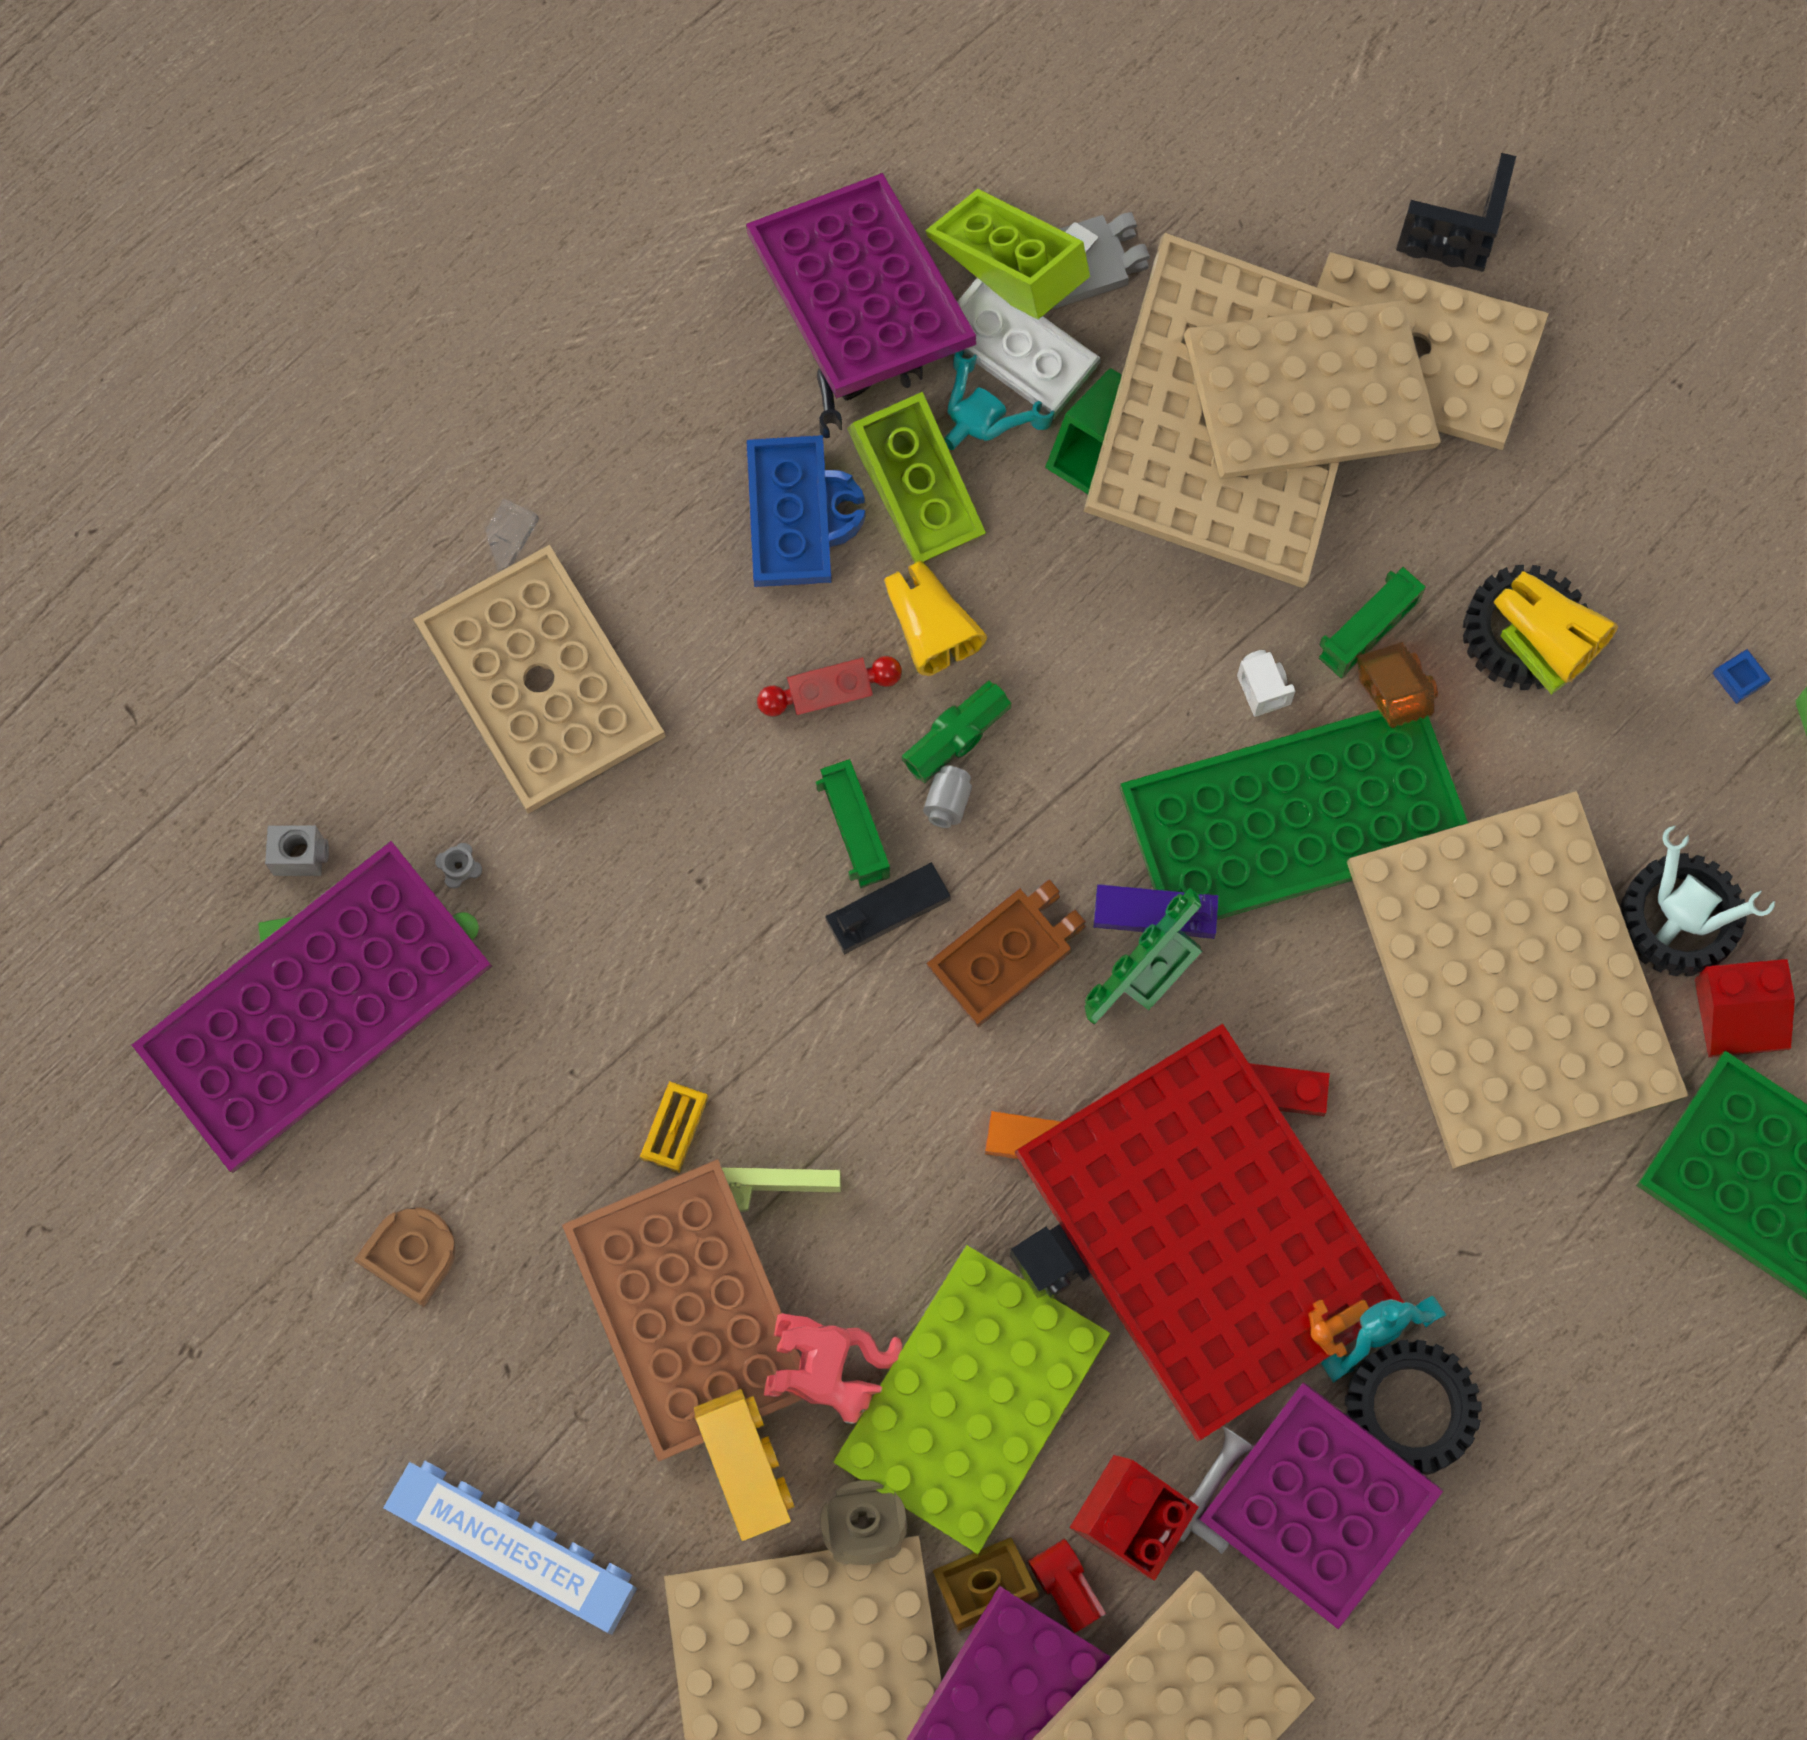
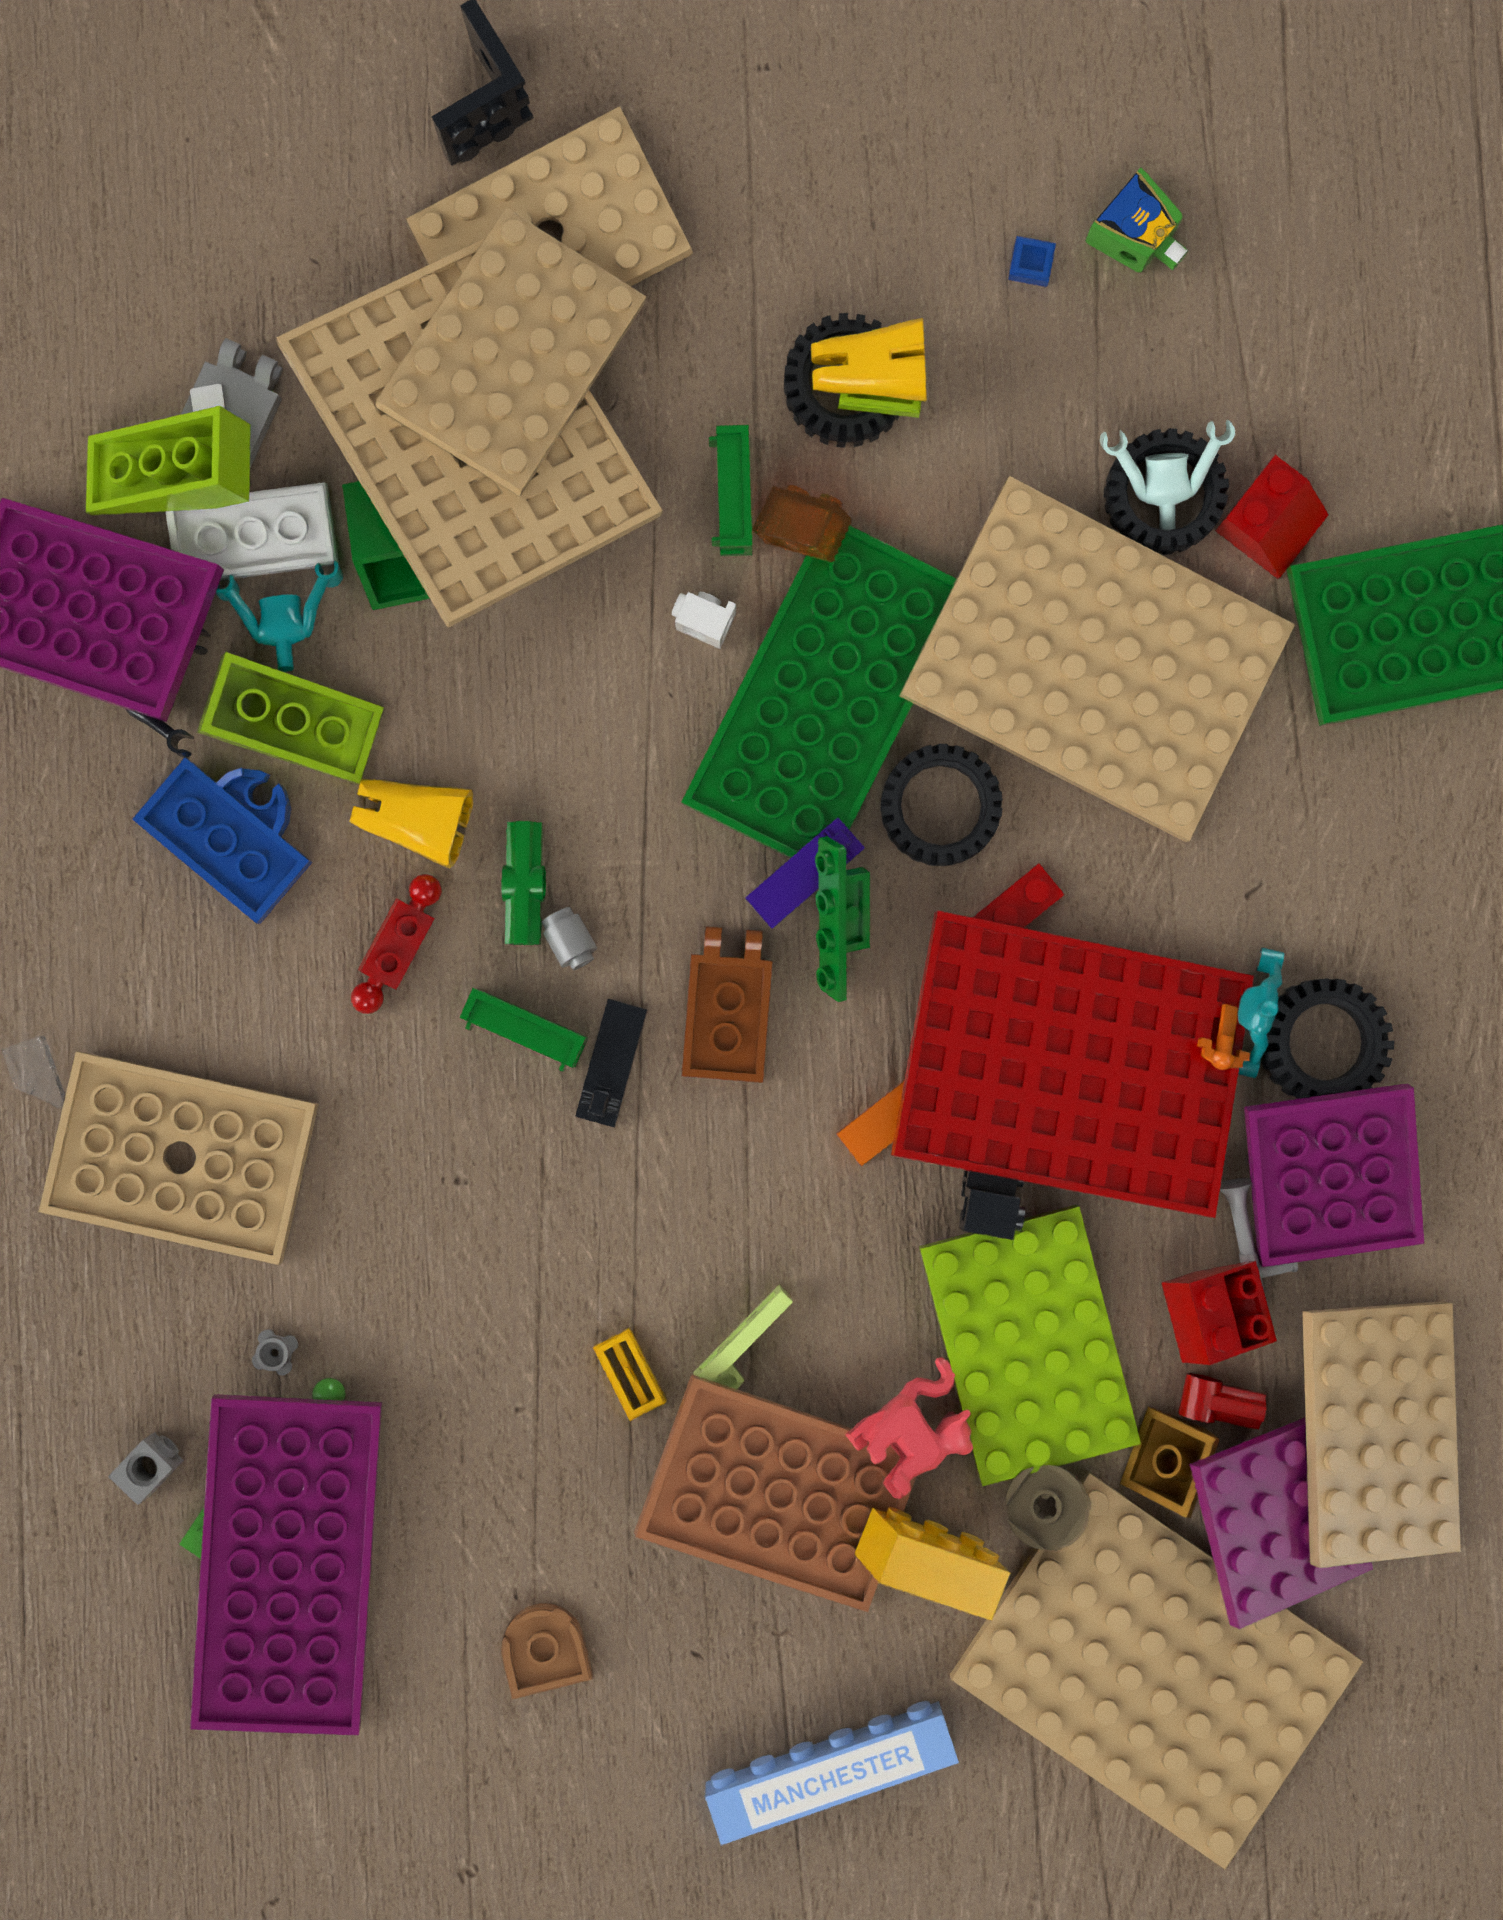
camera: 50 degrees left, 15 degrees up
(1309, 919) = (980, 776): none -> black tyre

